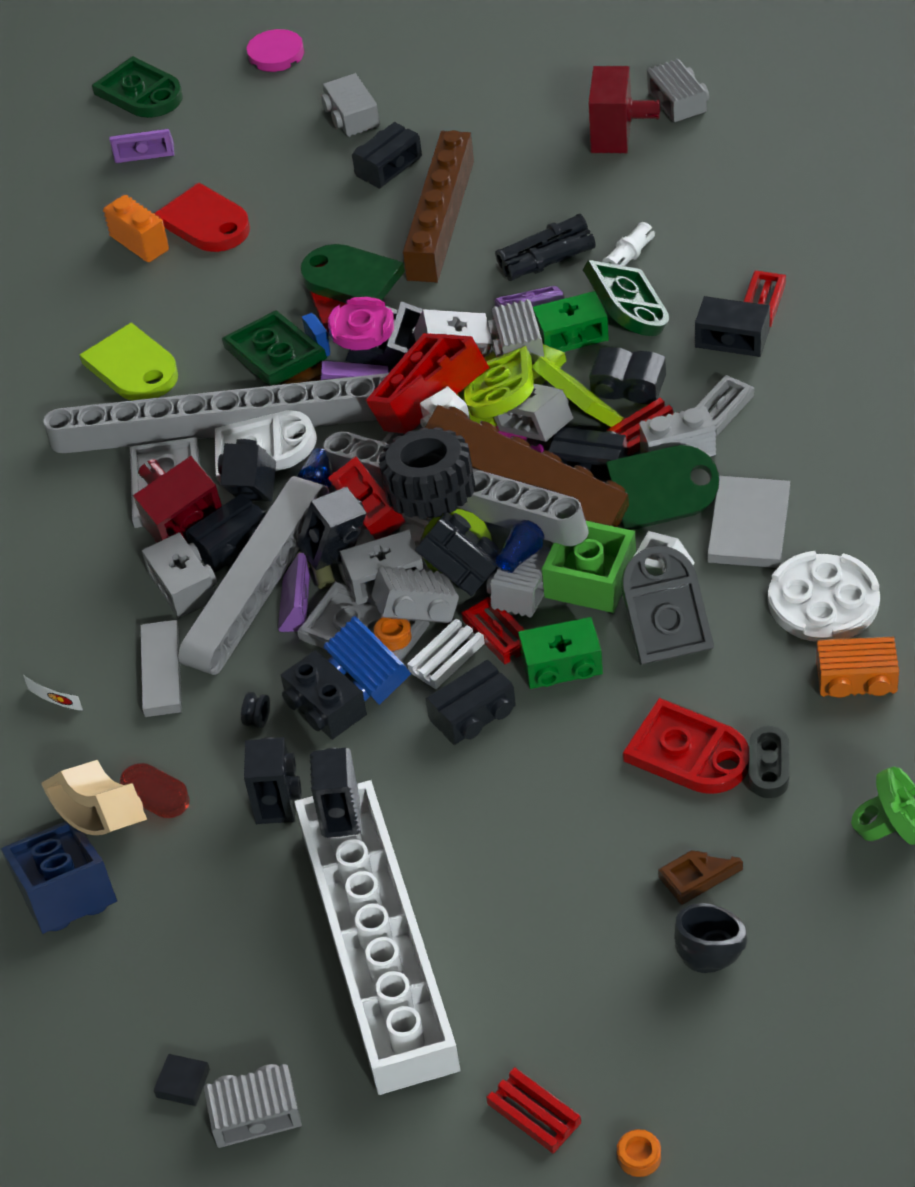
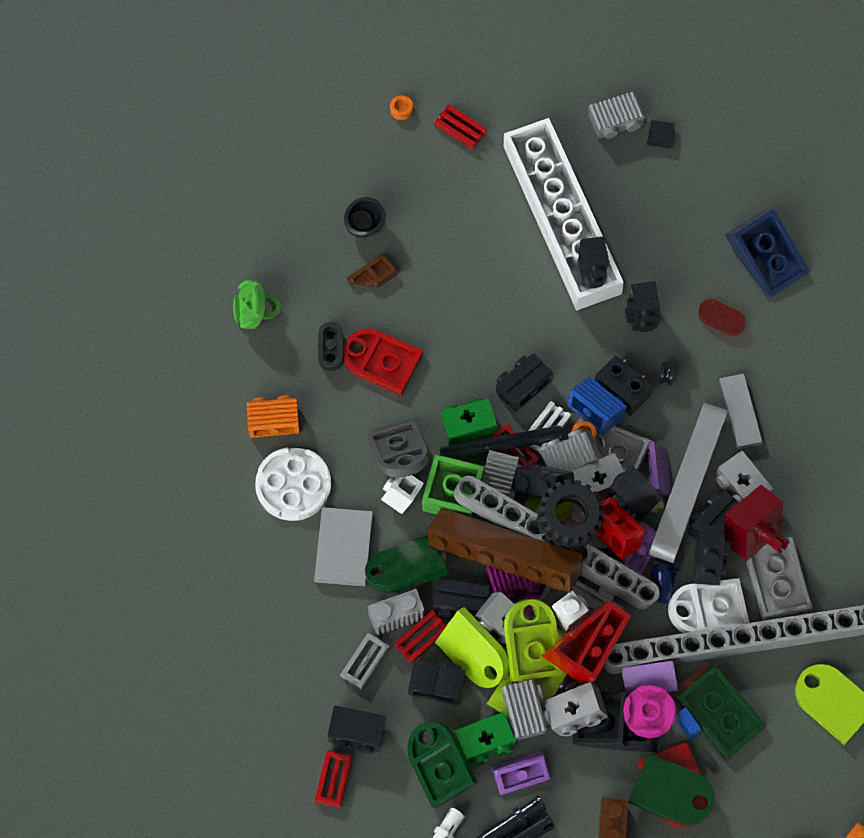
camera: 170 degrees right, 20 degrees up
(52, 696) = (819, 388): white sticker -> none
(93, 800) = (755, 294): tan brick -> none
(510, 620) = (502, 443): none -> black axle
(522, 543) = (503, 478): clear blue cone -> none

